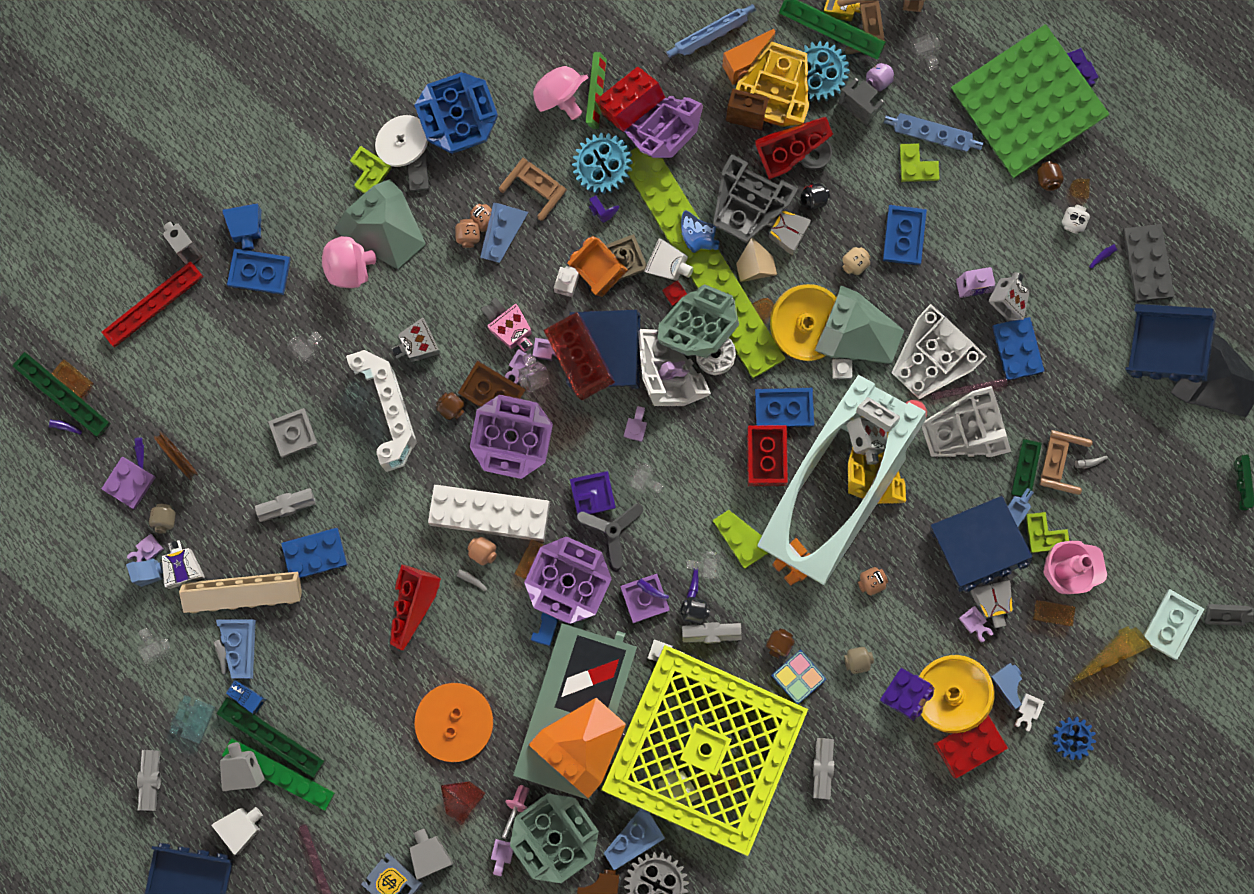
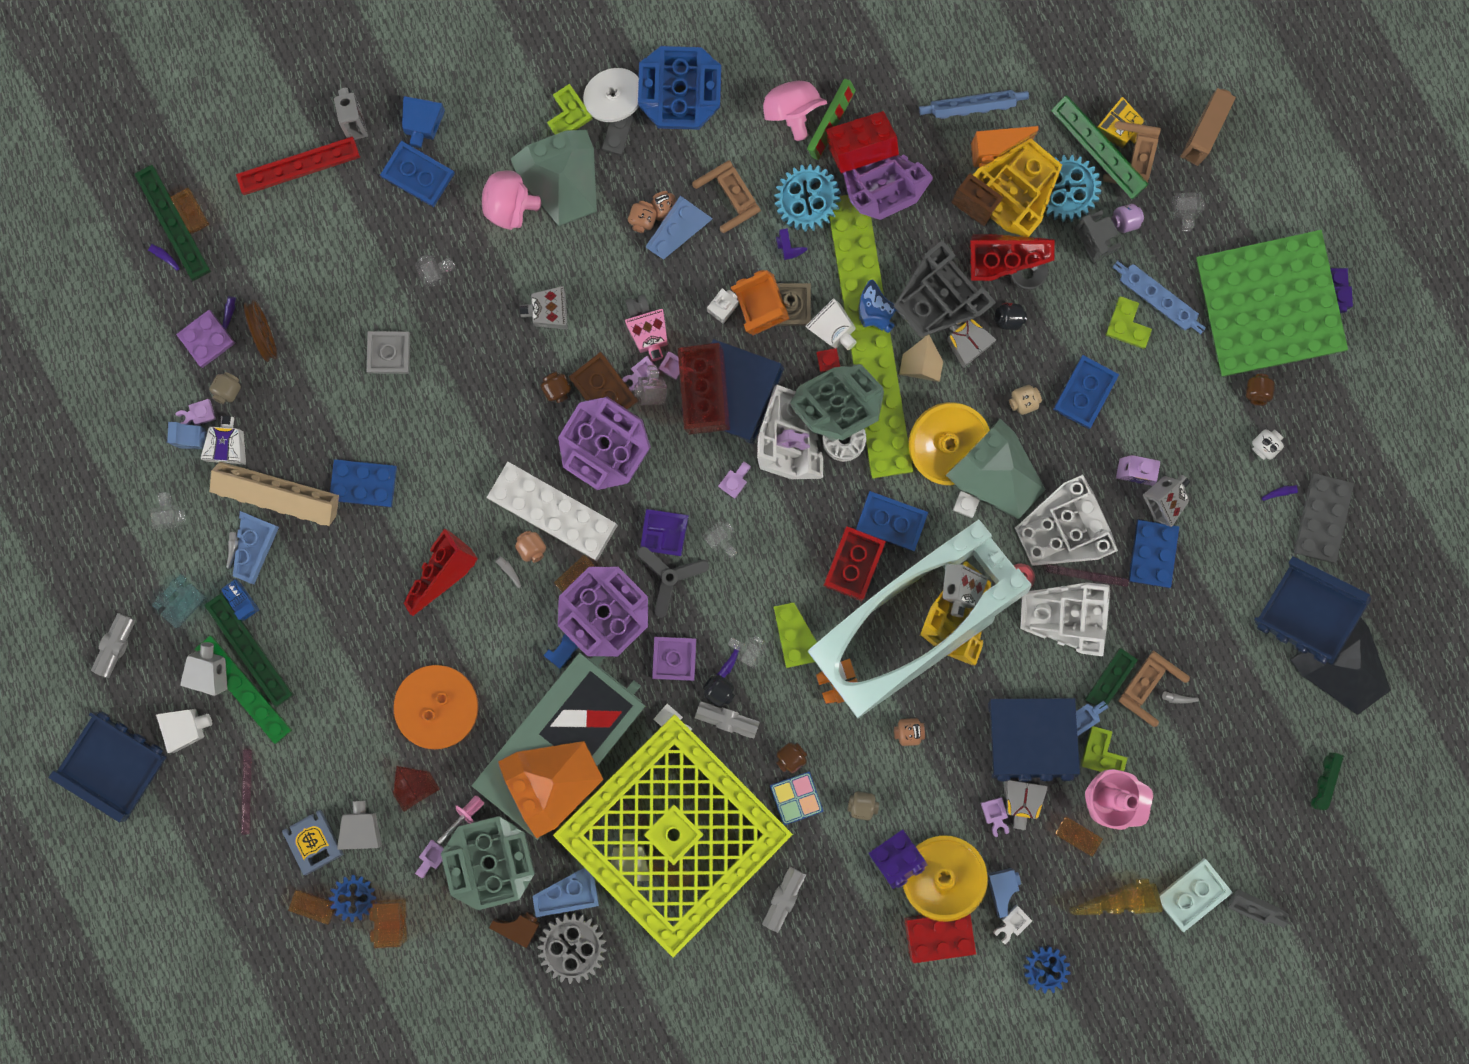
camera: 15 degrees right, 5 degrees up
(285, 505) = (352, 422): light grey piece -> none
(395, 452) = (496, 367): white windscreen -> none
(646, 587) = (681, 651): dark purple helmet -> none
(763, 308) = (912, 410): clear orange tile -> none
(878, 414) = (981, 569): light grey plate -> none
(1080, 188) = (1285, 414): clear orange tile -> none

